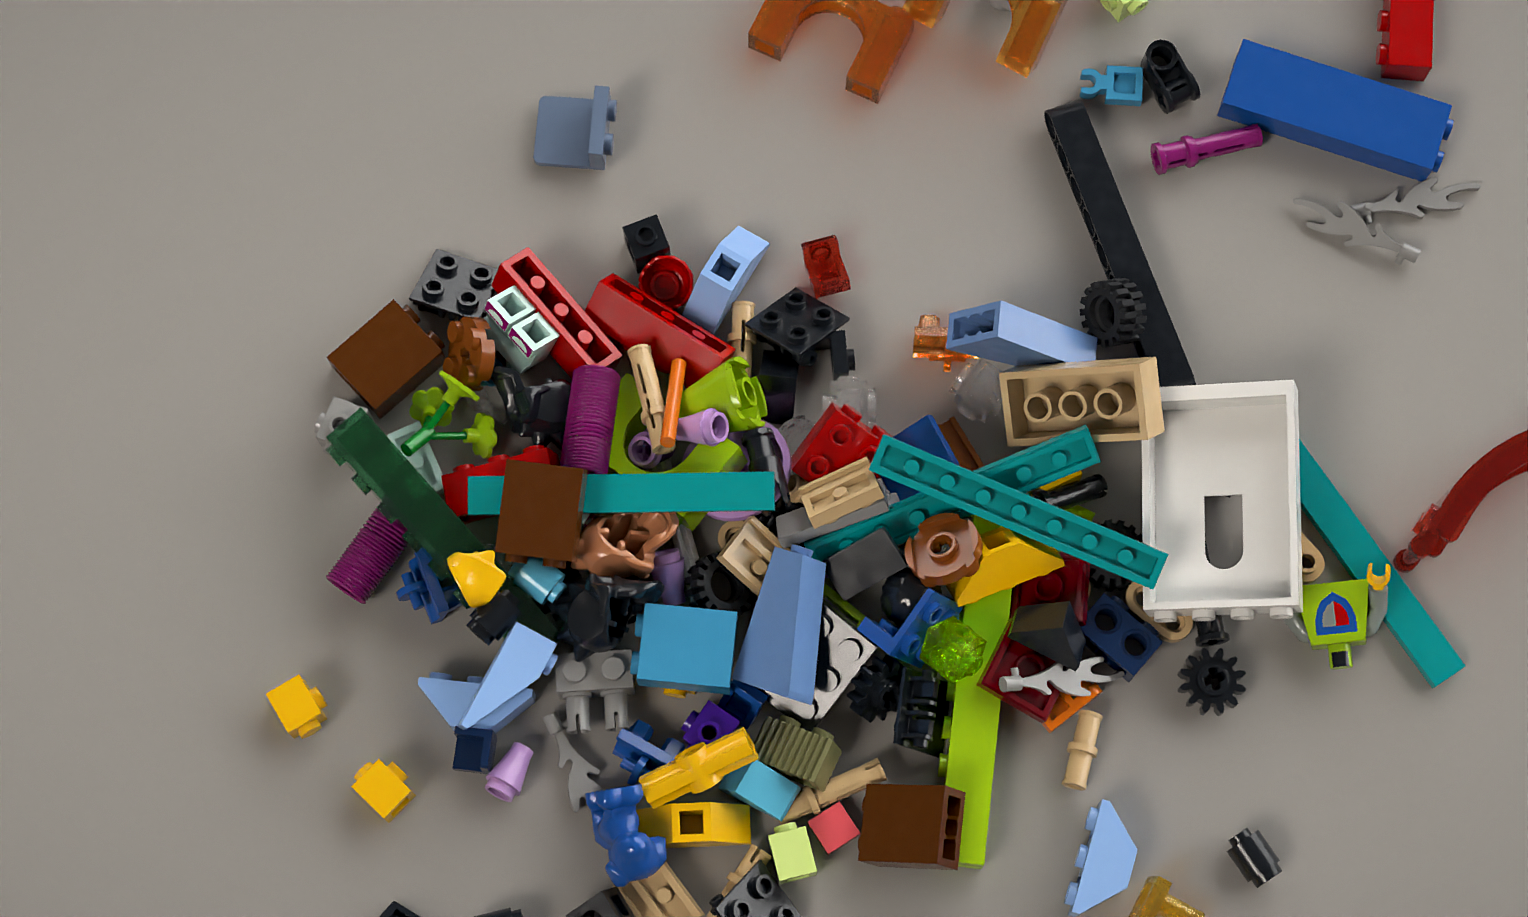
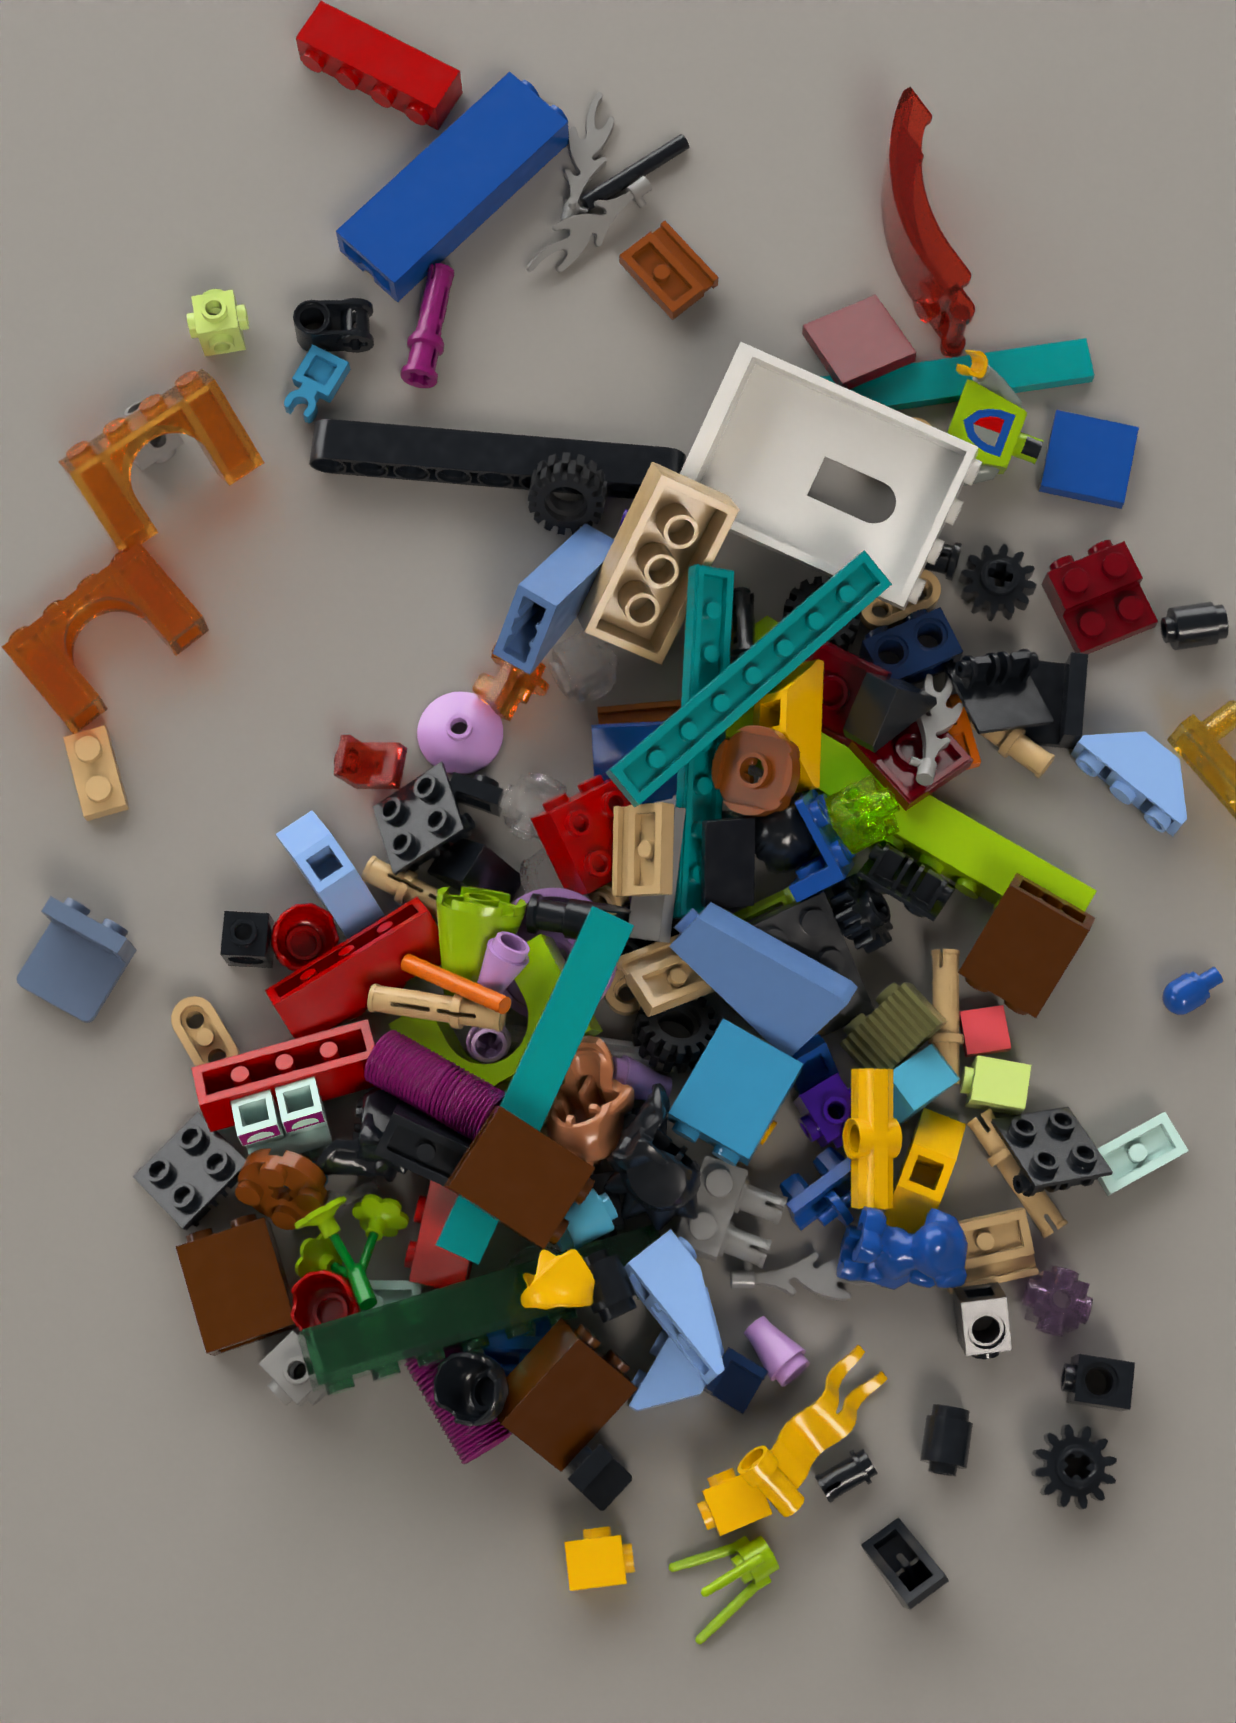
camera: 65 degrees left, 0 degrees up
(345, 822) = (752, 1562): none -> lime plant
(360, 679) = (598, 1476): none -> black bracket
(376, 551) = (471, 1388): none -> black hair
(397, 418) = (322, 1298): none -> red hair
(405, 623) = (564, 1393): none -> reddish brown brick
(440, 866) = (846, 1475): none -> black pin
(452, 820) = (805, 1437): none -> yellow flag
(540, 430) = (421, 1144): none -> black panel
(557, 250) = (209, 1037): none -> tan plate
(725, 76) = (96, 773): none -> tan plate
(879, 340) = (460, 752): none -> lavender dish
(1116, 721) = (999, 691): none -> black hinge
(1134, 771) = (1063, 692): none -> black panel
(1241, 770) = (1099, 597): none -> dark red plate
(1350, 307) = (668, 270): none -> dark orange plate
(1360, 713) = (1088, 459): none -> blue tile
(1364, 484) = (859, 343): none -> tile
(1424, 244) = (635, 171): none -> black bar

